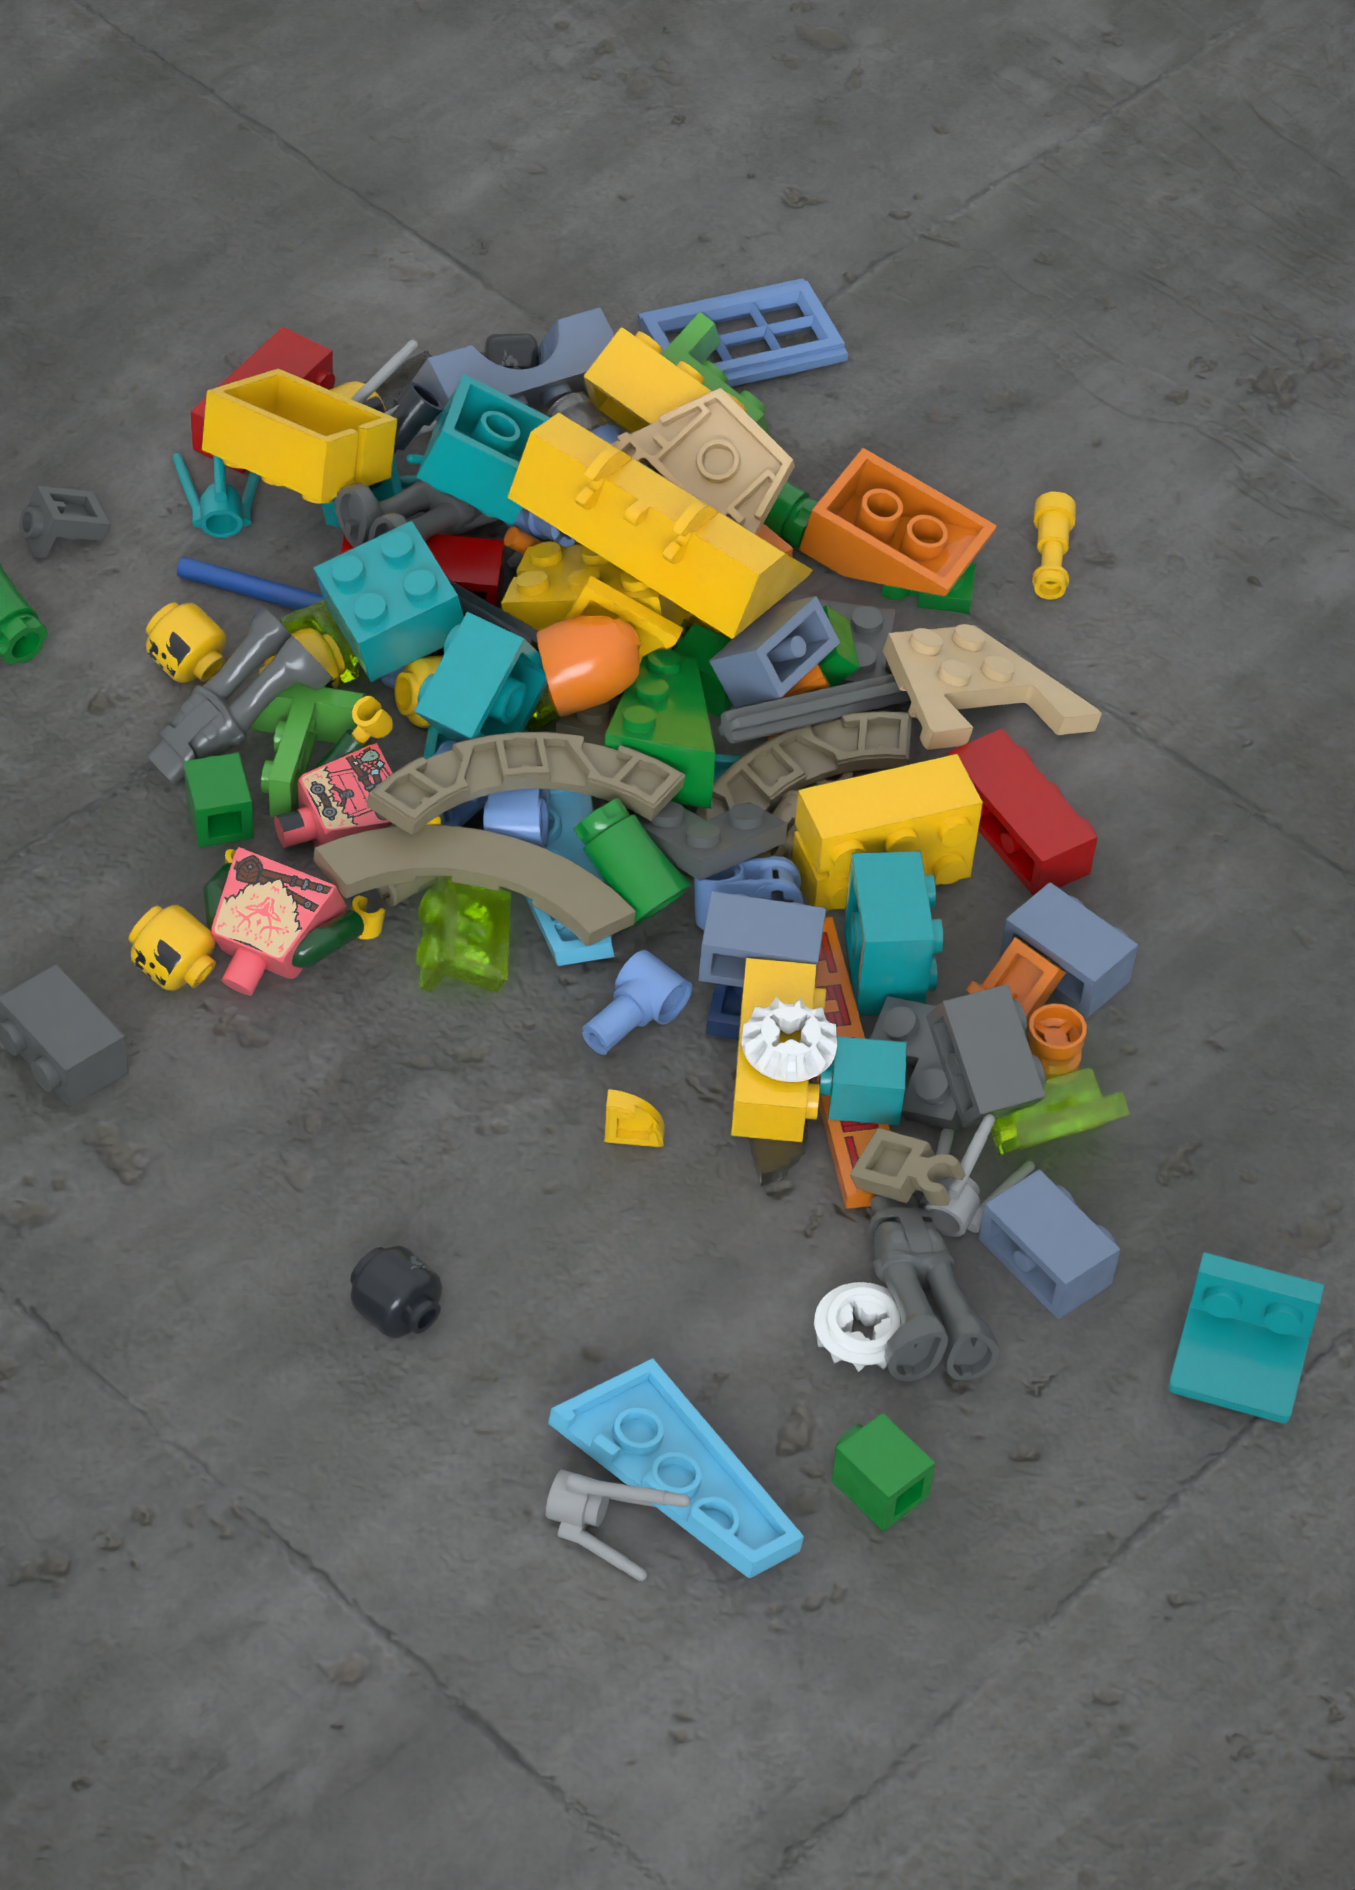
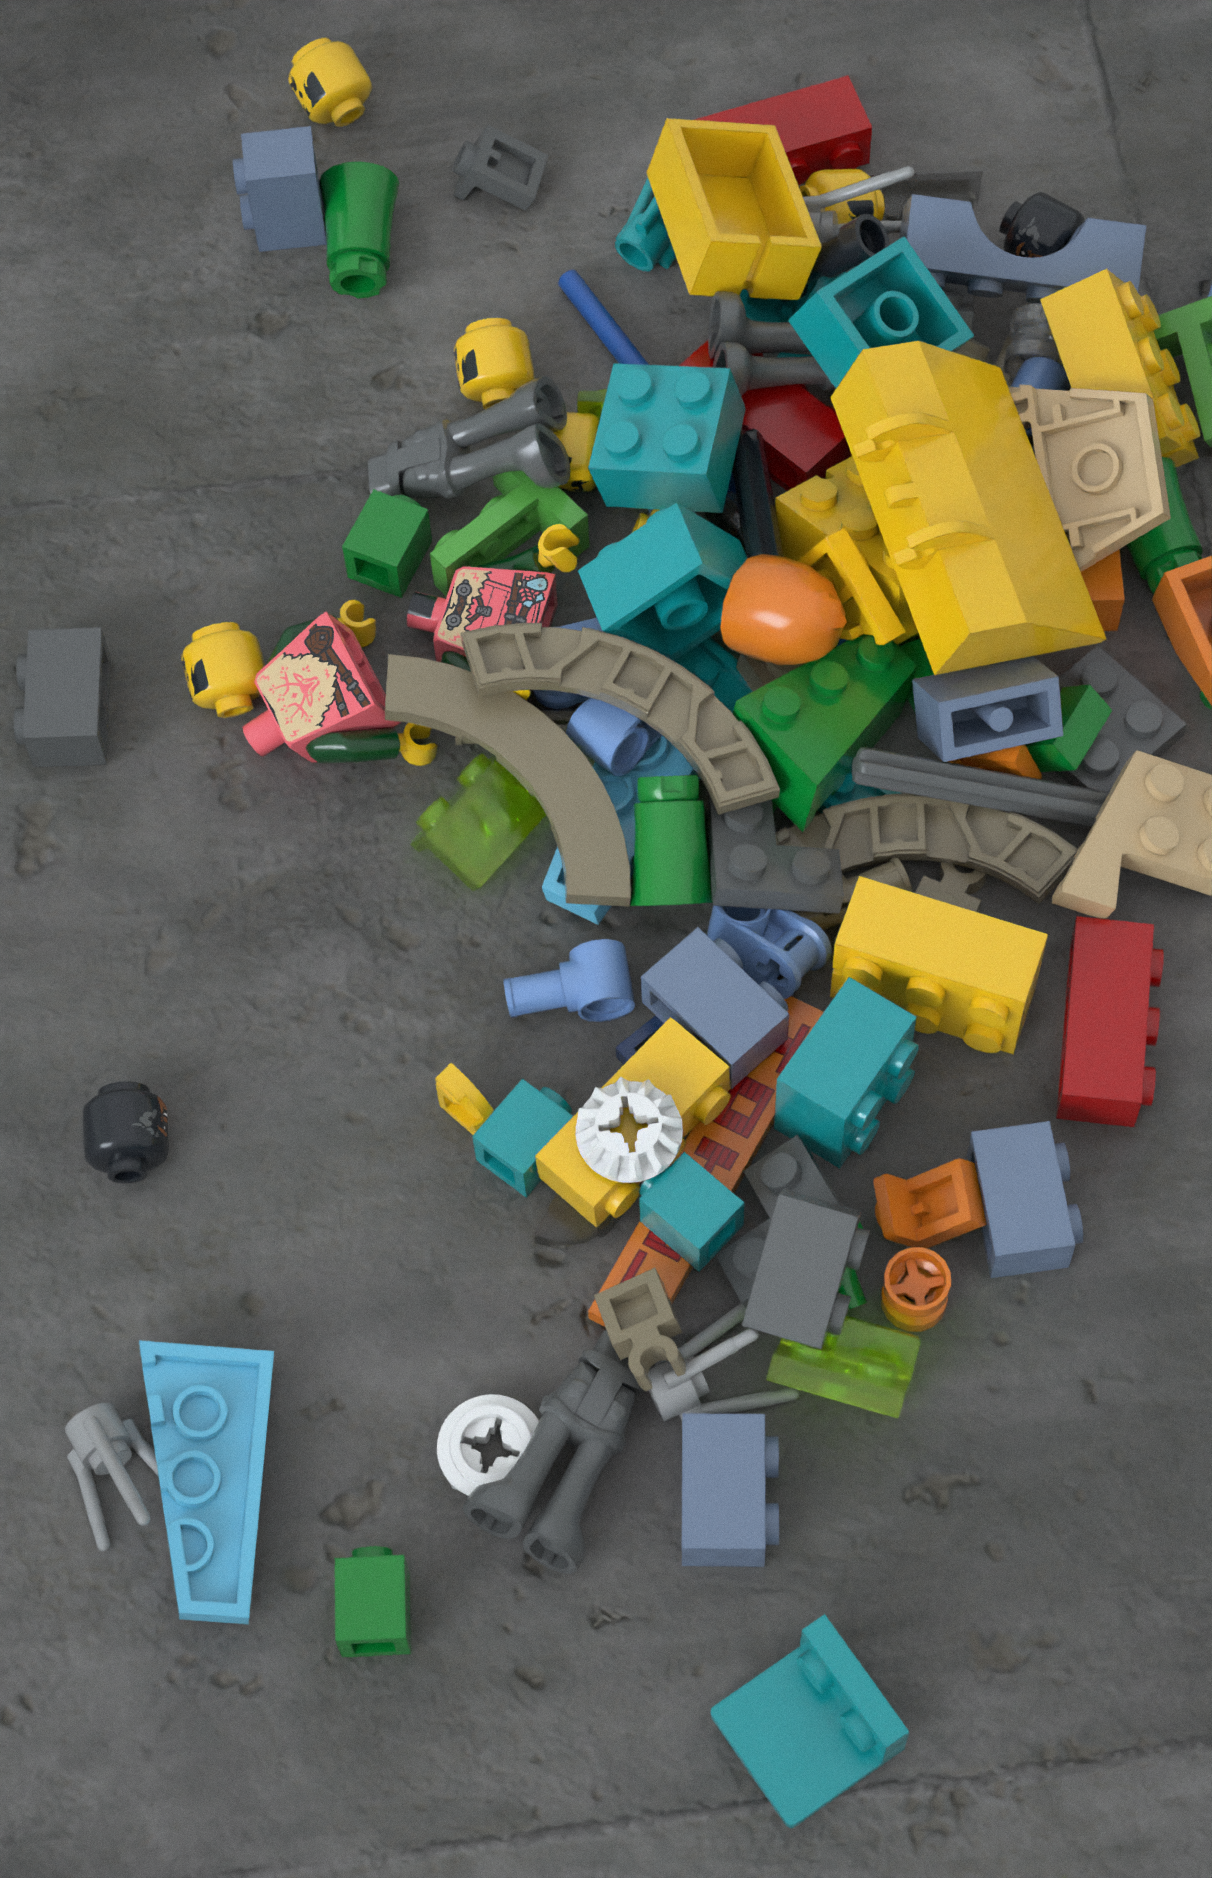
camera: 45 degrees right, 15 degrees up
(698, 1115) = (518, 1132): none -> teal brick

